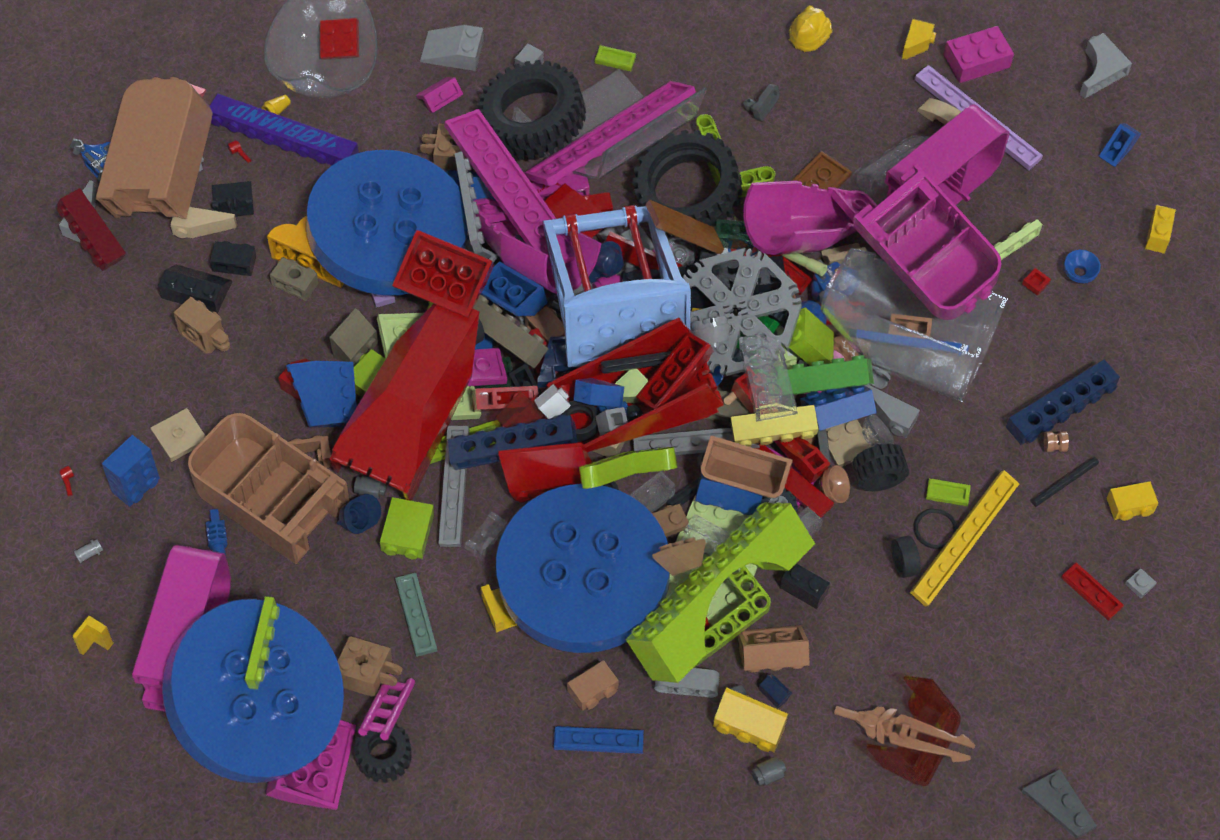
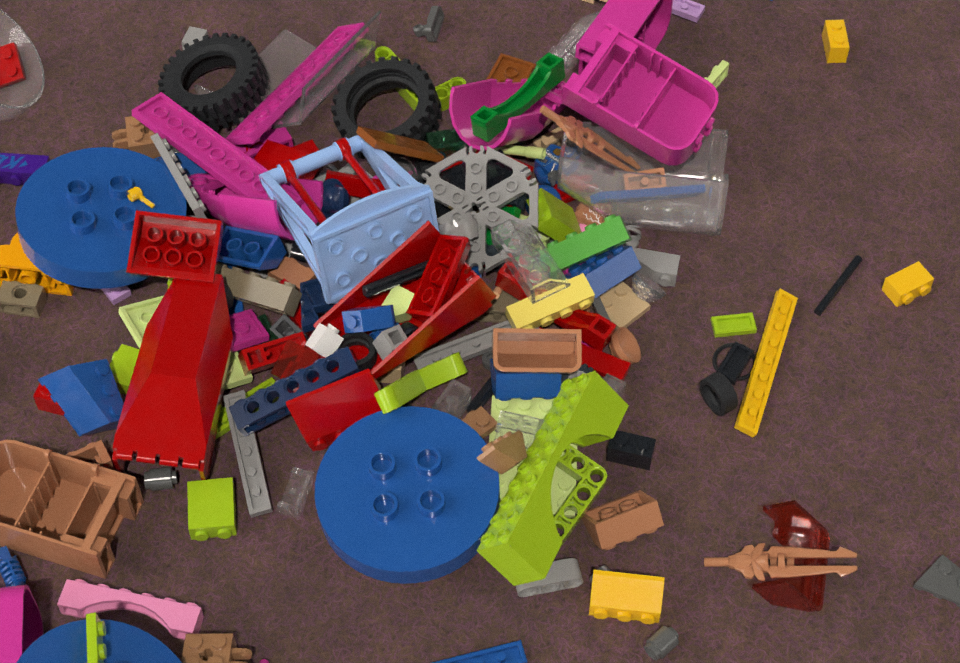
camera: 15 degrees left, 5 degrees down
(272, 579) = (83, 598): none -> bright pink arch
(353, 338) = (99, 337): dark tan slope -> none
(360, 514) = (158, 508): dark blue piece -> none
(416, 614) = (248, 593): sand green tile -> none
(423, 209) = (136, 193): none -> yellow hand
(440, 93) = (118, 93): dark pink panel -> none
(454, 47) = (118, 48): light grey slope -> none
(495, 607) = (330, 562): yellow panel -> none
(593, 686) = (454, 610): nougat brick -> none
(615, 58) = (277, 21): lime tile -> none
(775, 691) = (638, 561): dark blue piece -> none
(852, 191) = (546, 75): none -> green arch
(855, 259) = (575, 132): none -> nougat sword
(880, 467) = (664, 317): black tyre -> none
(934, 530) = (735, 362): none -> black tile
(1036, 281) = (741, 115): red plate -> none
(1056, 441) = (816, 250): nougat wheel -> none
(1085, 260) = (781, 86): blue piece -> none
(1092, 591) = (903, 377): red tile -> none
(1100, 374) = (808, 214): dark blue brick -> none
(1140, 583) = (945, 357): light grey plate -> none

